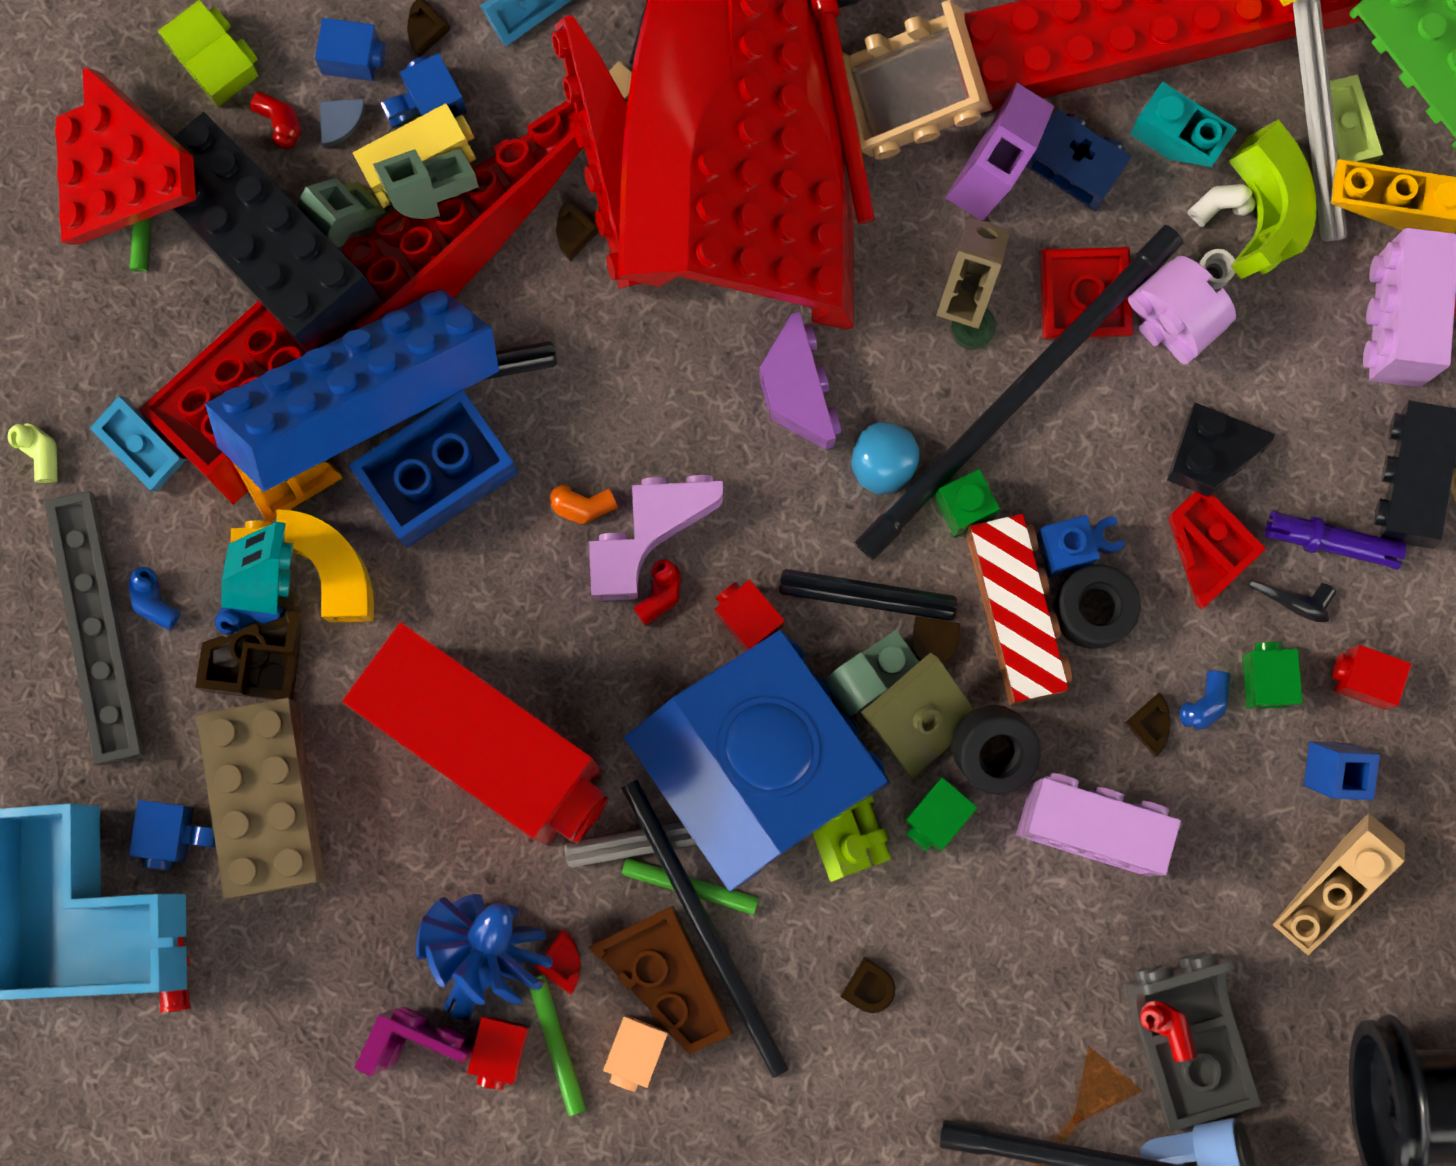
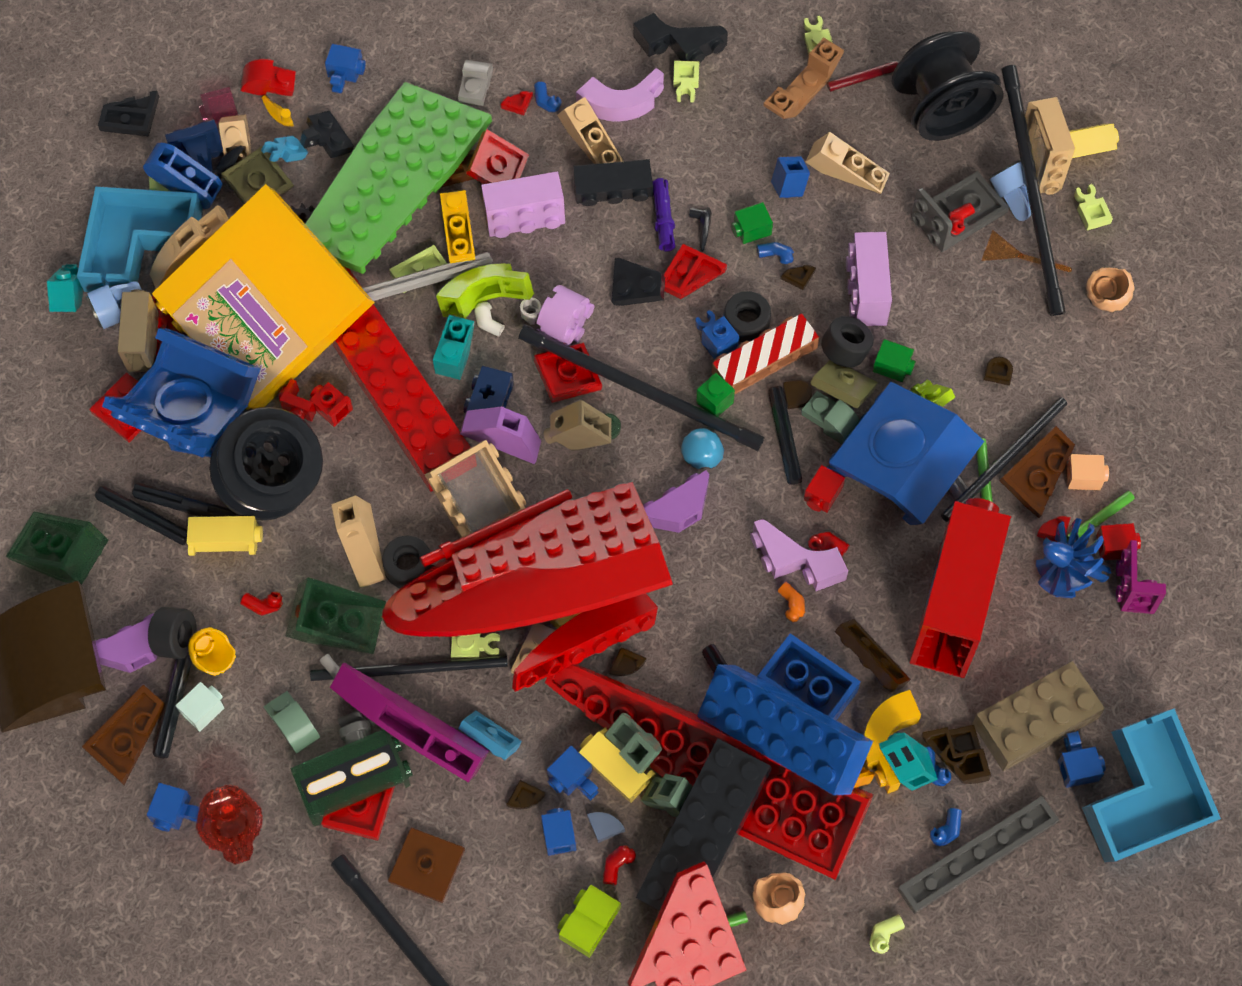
camera: 105 degrees left, 15 degrees down
(135, 312) = (778, 897): none -> light nougat hair
(138, 443) = (857, 870): dark azure plate -> none
(451, 588) = (872, 655): none -> dark brown plate
(1370, 676) = (733, 177): red brick -> none

